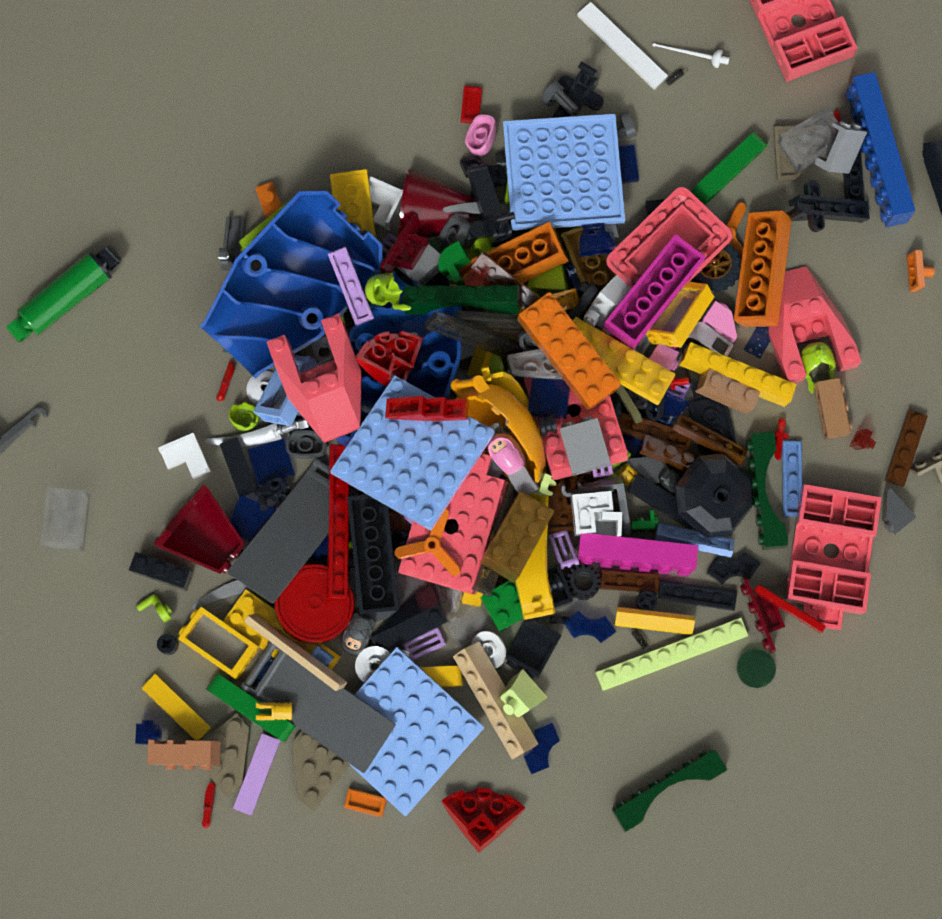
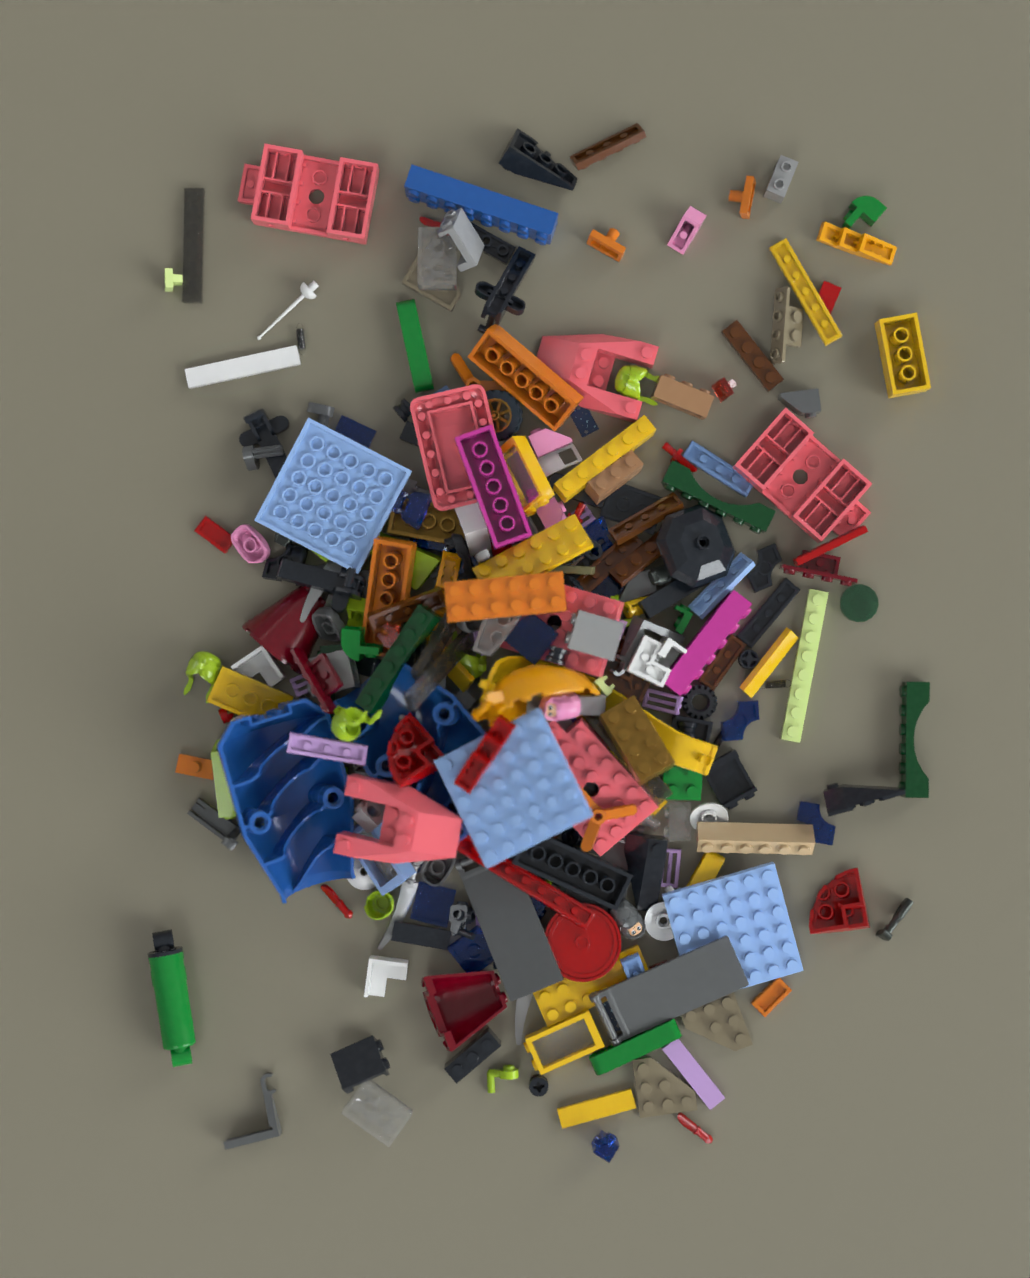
camera: 60 degrees left, 10 degrees up
(99, 479) = (360, 1063): none -> black panel
(184, 754) = (642, 1126): nougat wedge -> none
(279, 710) = (656, 1026): yellow hinge -> none
(295, 652) = (615, 983): tan tile -> none
(316, 354) = (369, 815): none -> light grey brick
(358, 158) = (206, 665): none -> lime hair
(502, 871) = (904, 907): none -> pearl dark grey piece
(521, 694) = (764, 814): yellowish green torso -> none
(578, 756) = (846, 797): none -> black wedge
(669, 188) = (403, 410): none -> black wheel

